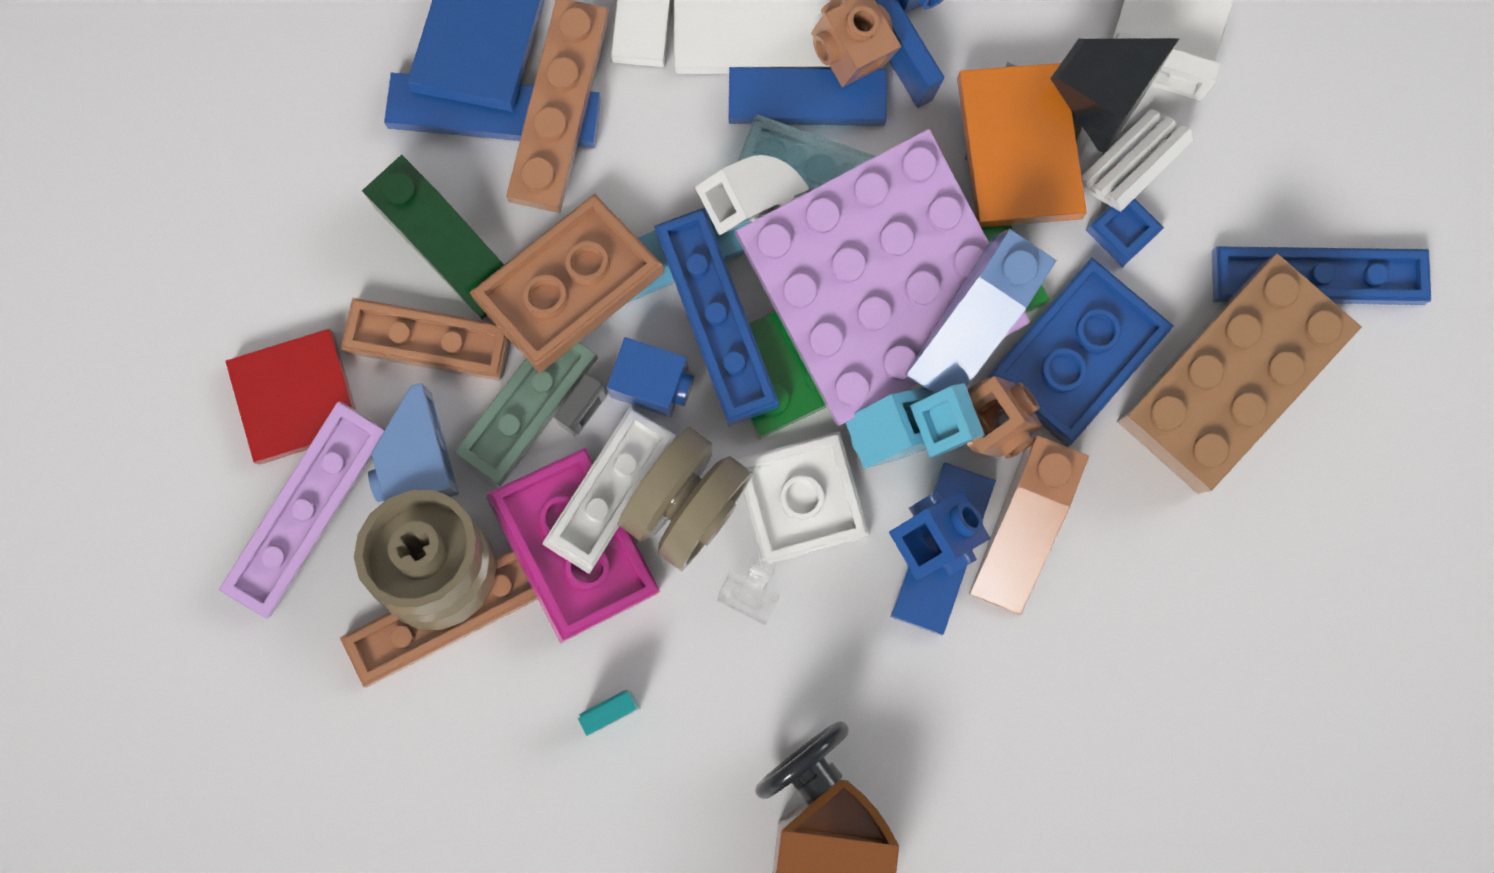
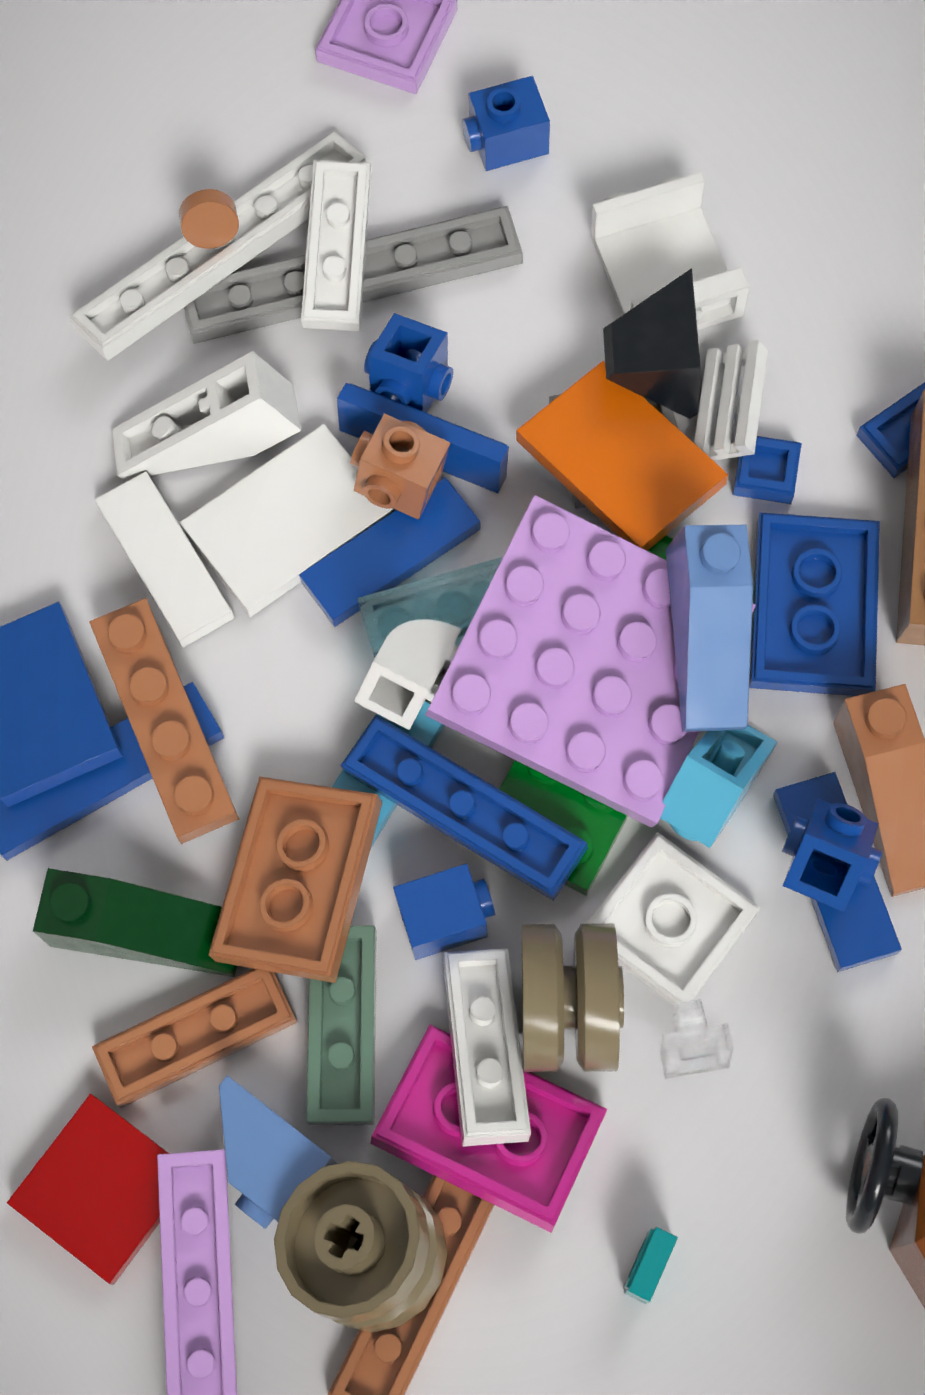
camera: 30 degrees left, 10 degrees down
(581, 405) = (396, 985): dark grey tile -> none
(947, 420) = (756, 742): medium azure plate -> none
(990, 400) = (771, 713): nougat brick -> none

